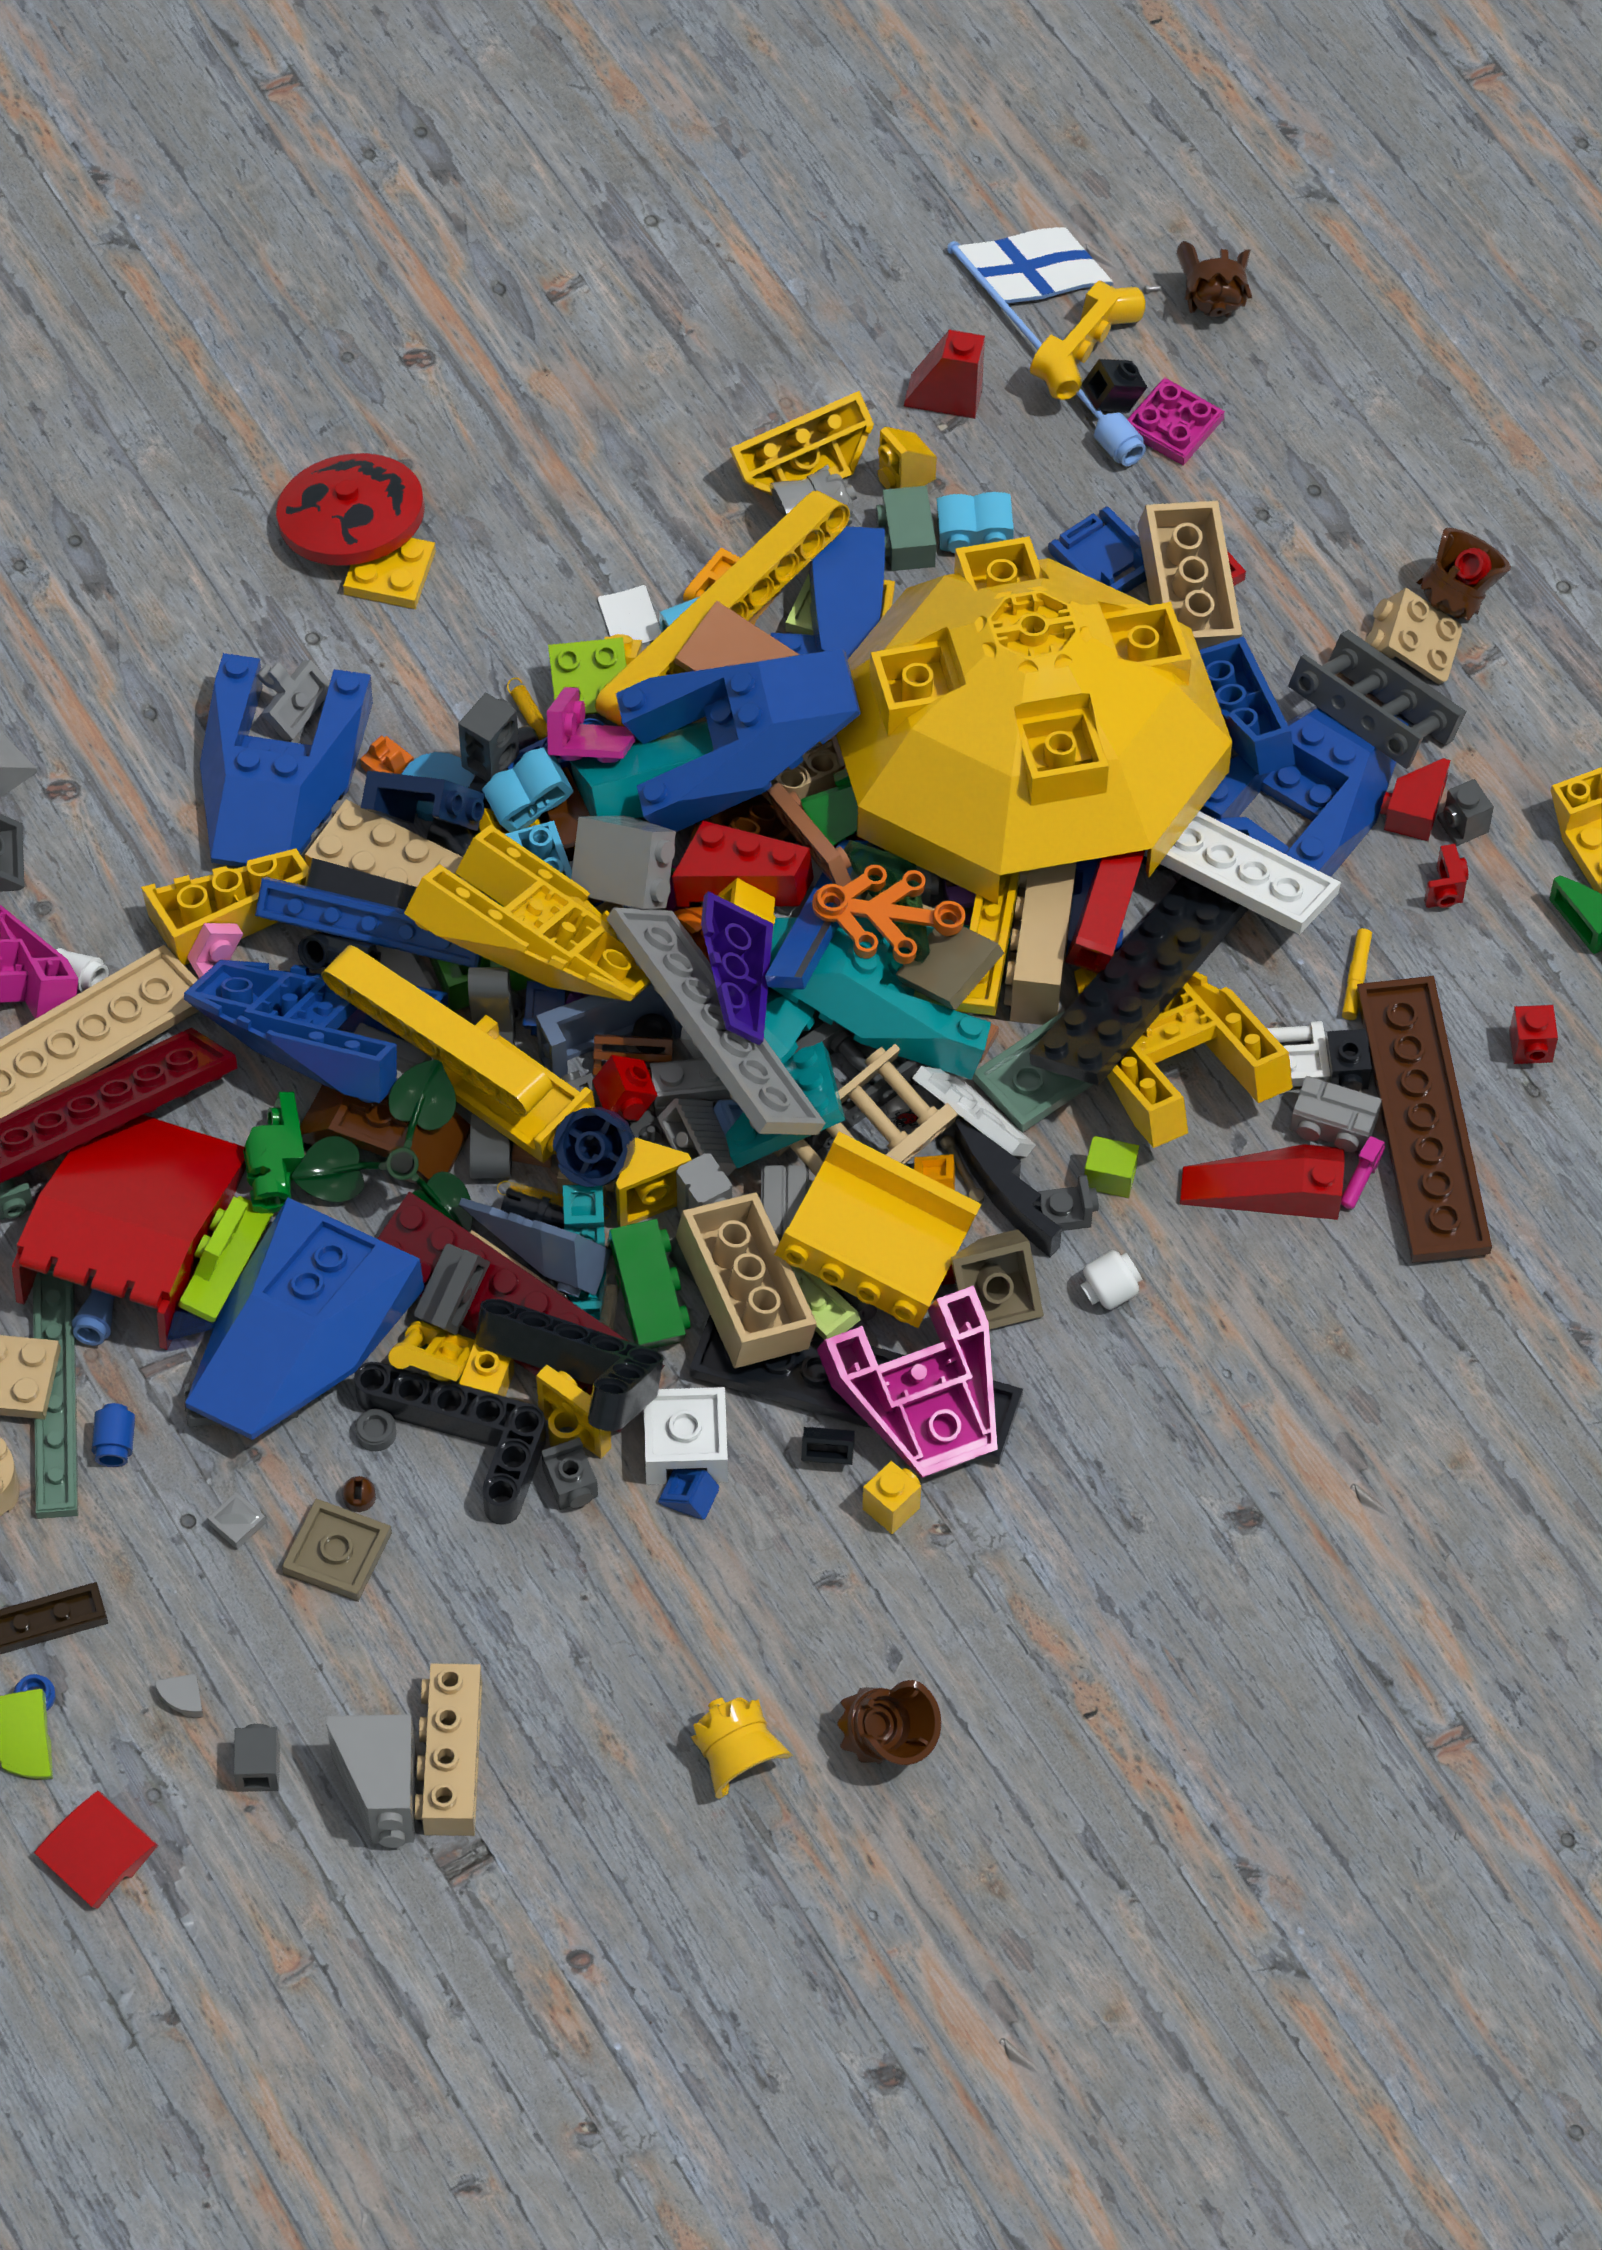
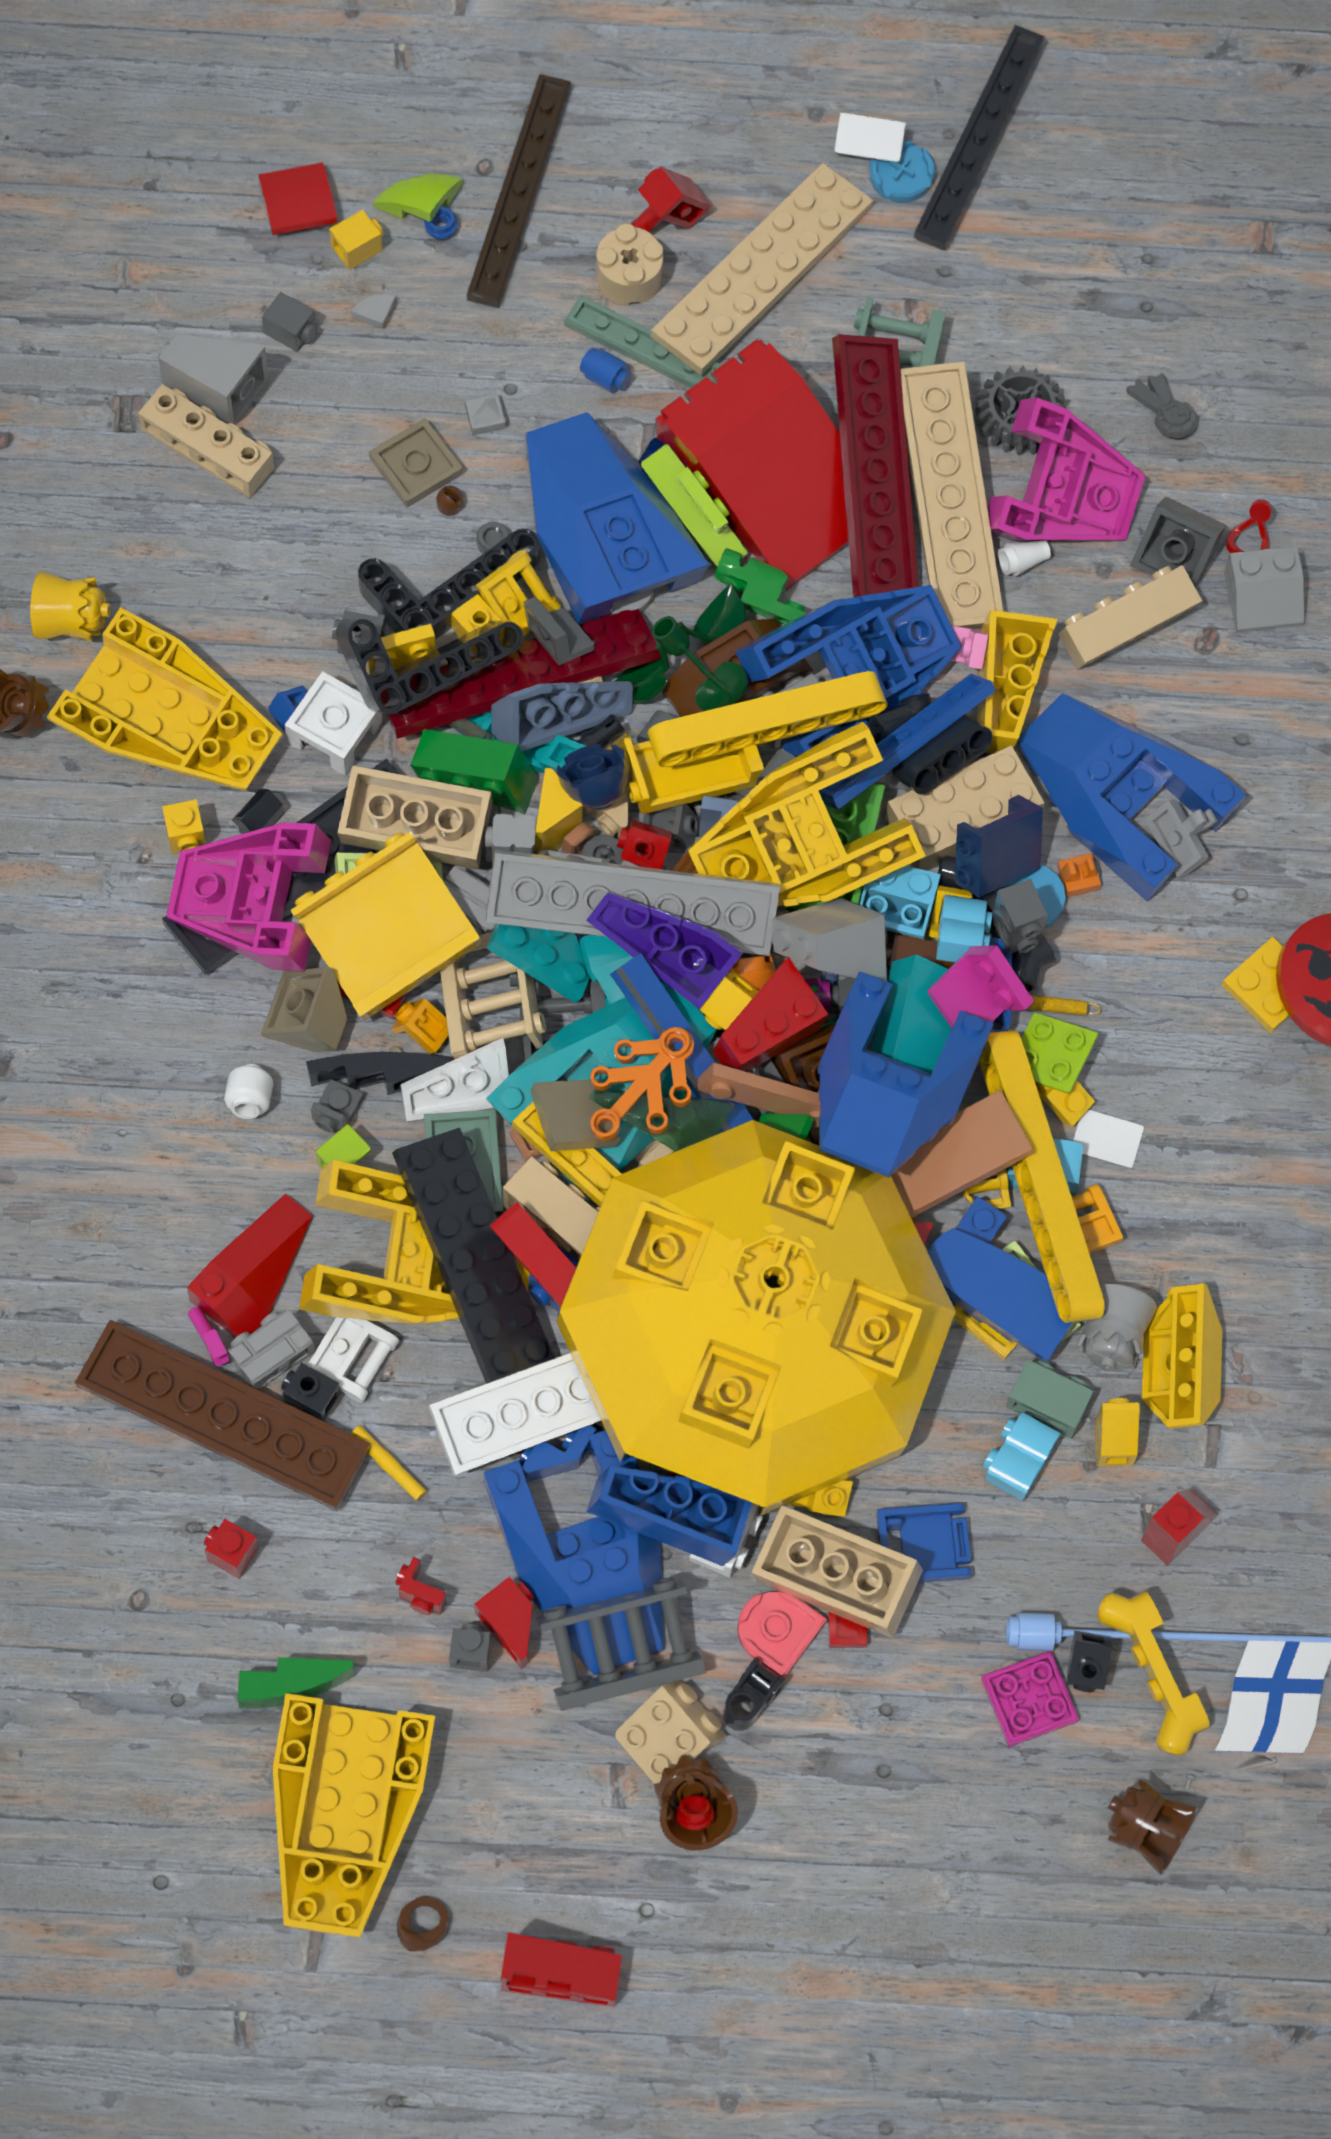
camera: 120 degrees right, 10 degrees up
(89, 843) = (1129, 616): none -> tan brick
(111, 1756) = (356, 239): none -> yellow brick
(786, 1591) = (165, 708): none -> yellow wedge
(1268, 617) = (778, 1629): none -> coral tile
(1337, 599) = (755, 1689): none -> black piece

